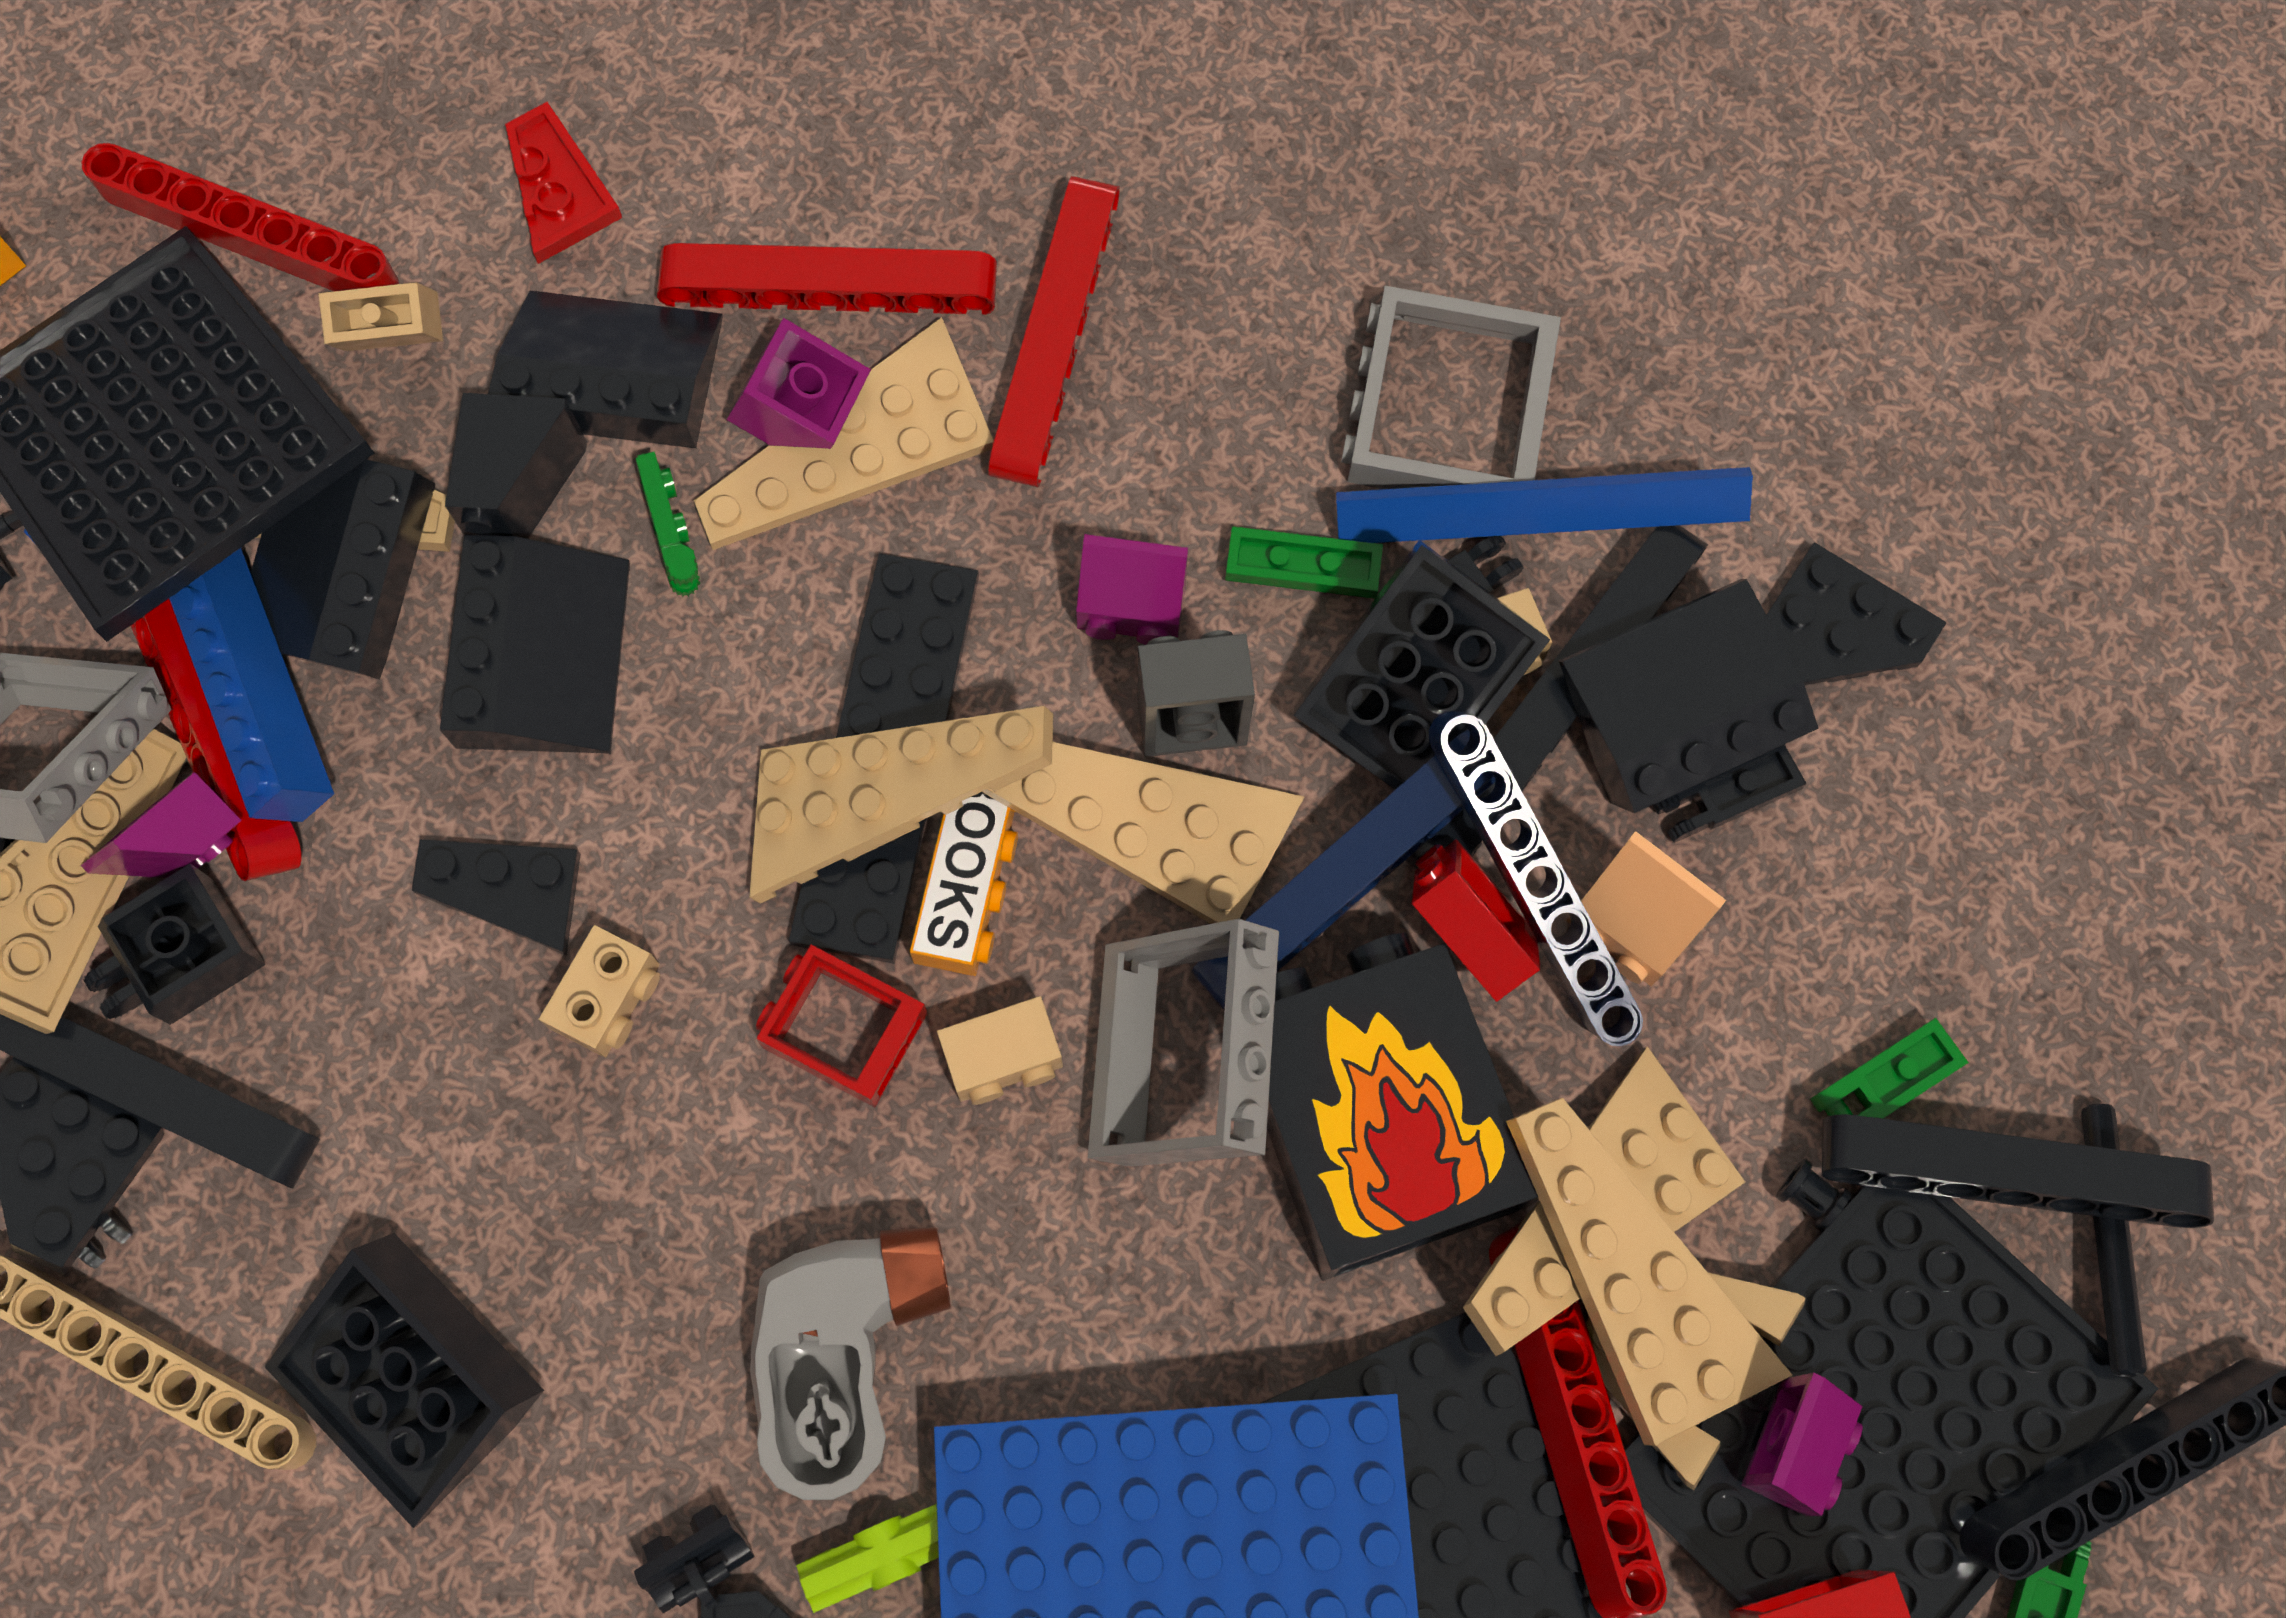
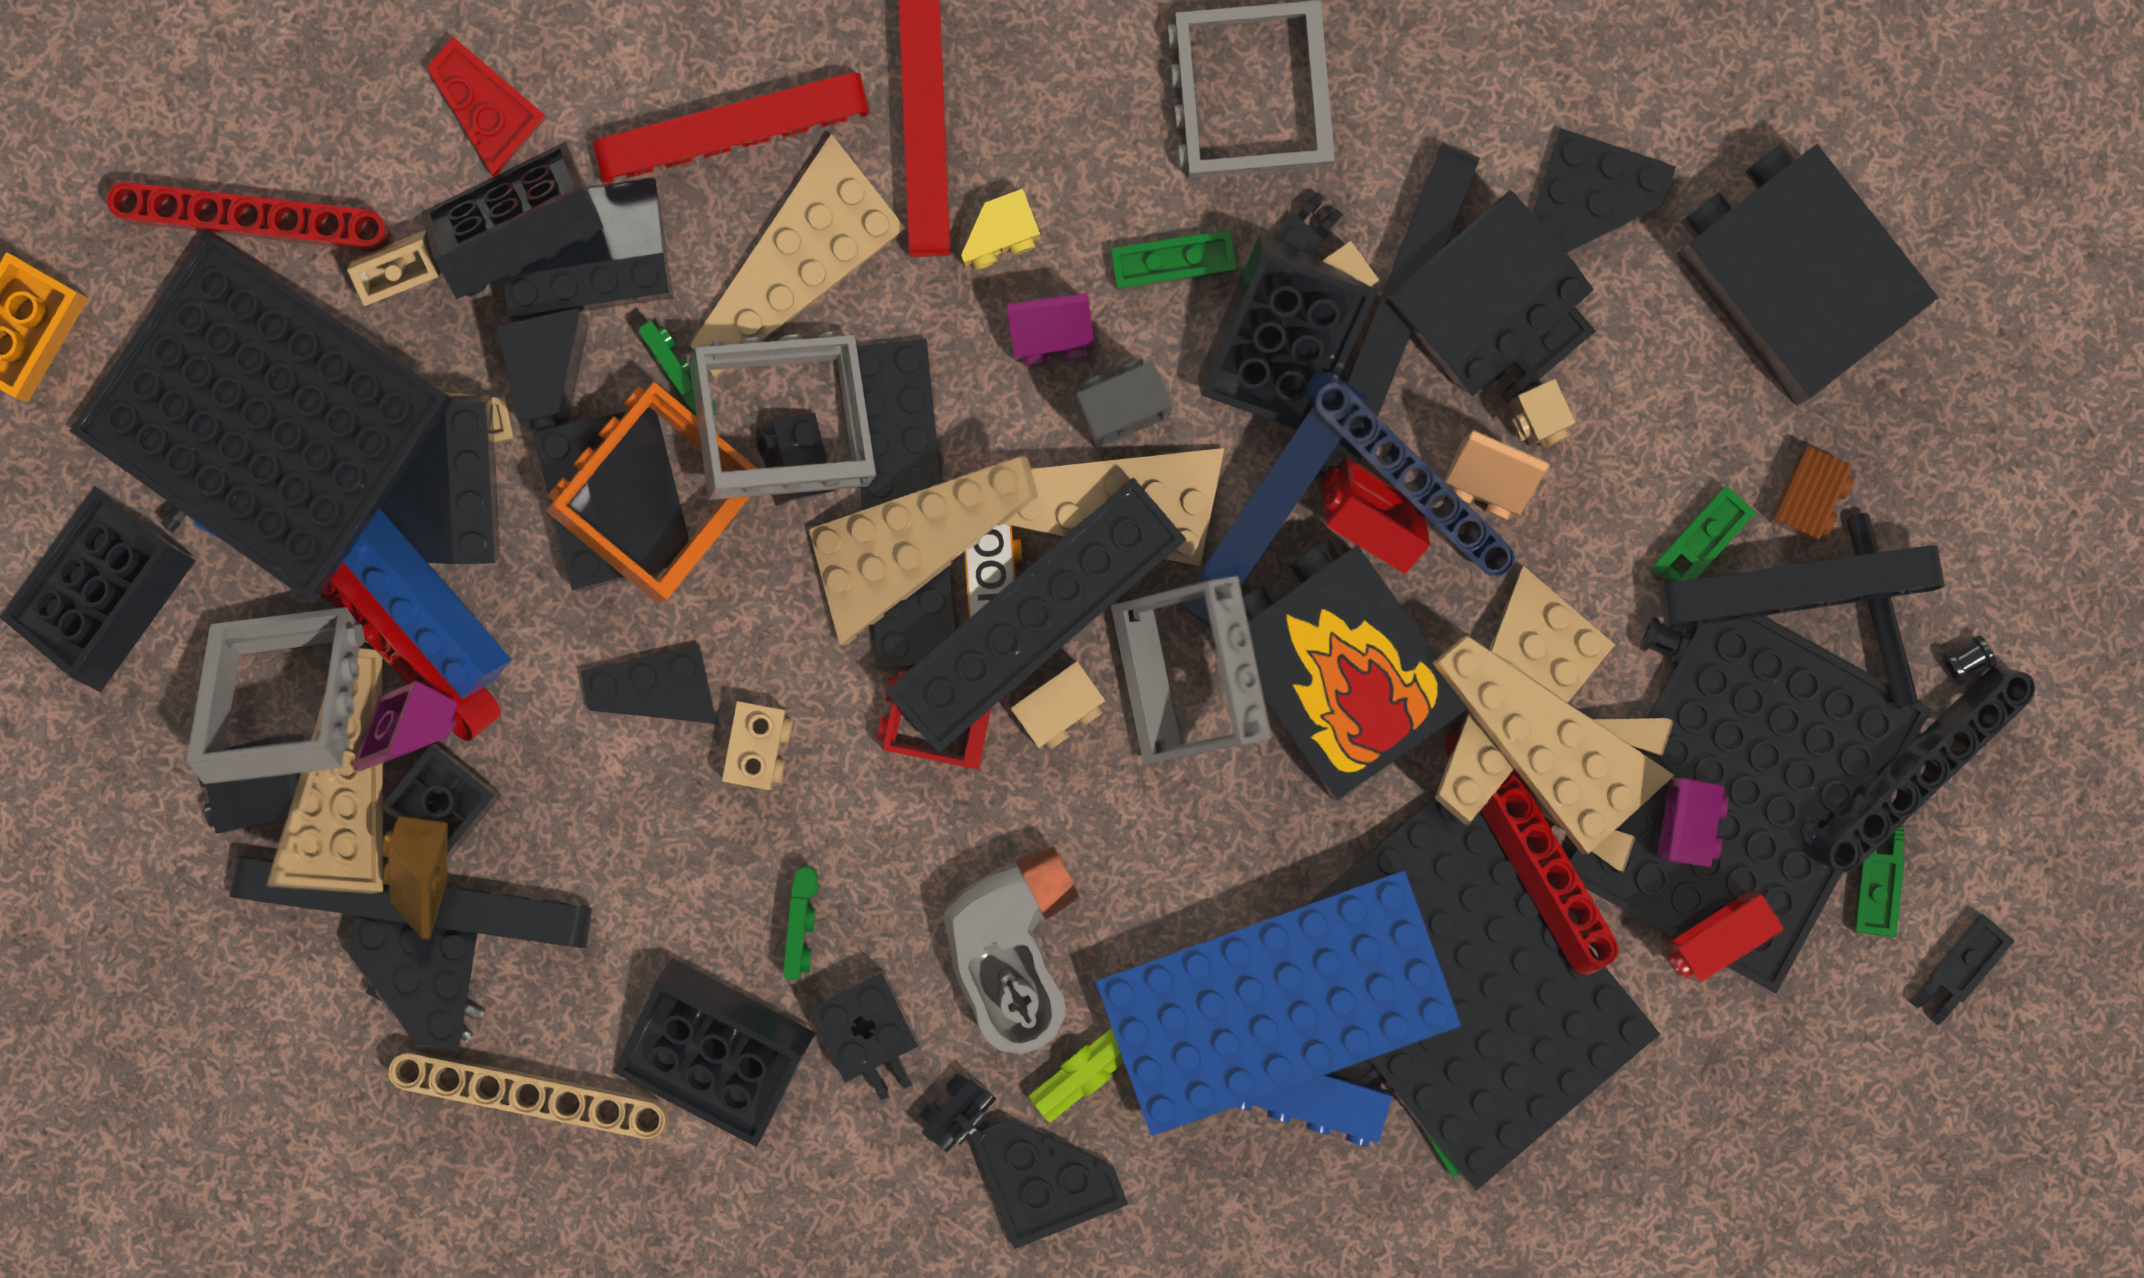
camera: 10 degrees left, 15 degrees up
(102, 1011) = (417, 870): none -> pearl gold slope
(529, 302) = (511, 221): none -> black slope
(553, 562) = (590, 460): none -> orange window
(577, 1233) = (800, 920): none -> green hinge
(591, 1437) = (860, 1054): none -> black hinge
(753, 667) = (793, 479): none -> light grey window
(772, 662) = (791, 443): none -> black bracket
(798, 391) = (743, 235): magenta slope -> none
(1002, 921) = (1035, 615): none -> black plate
(1105, 470) = (1001, 227): none -> light yellow slope
(1545, 506) = (1345, 168): blue tile -> none
(1723, 853) = (1542, 415): none -> tan brick
(2046, 1061) = (1812, 494): none -> dark orange brick
(2091, 778) = (1803, 270): none -> black brick
(2219, 1337) = (1969, 659): none -> black bush

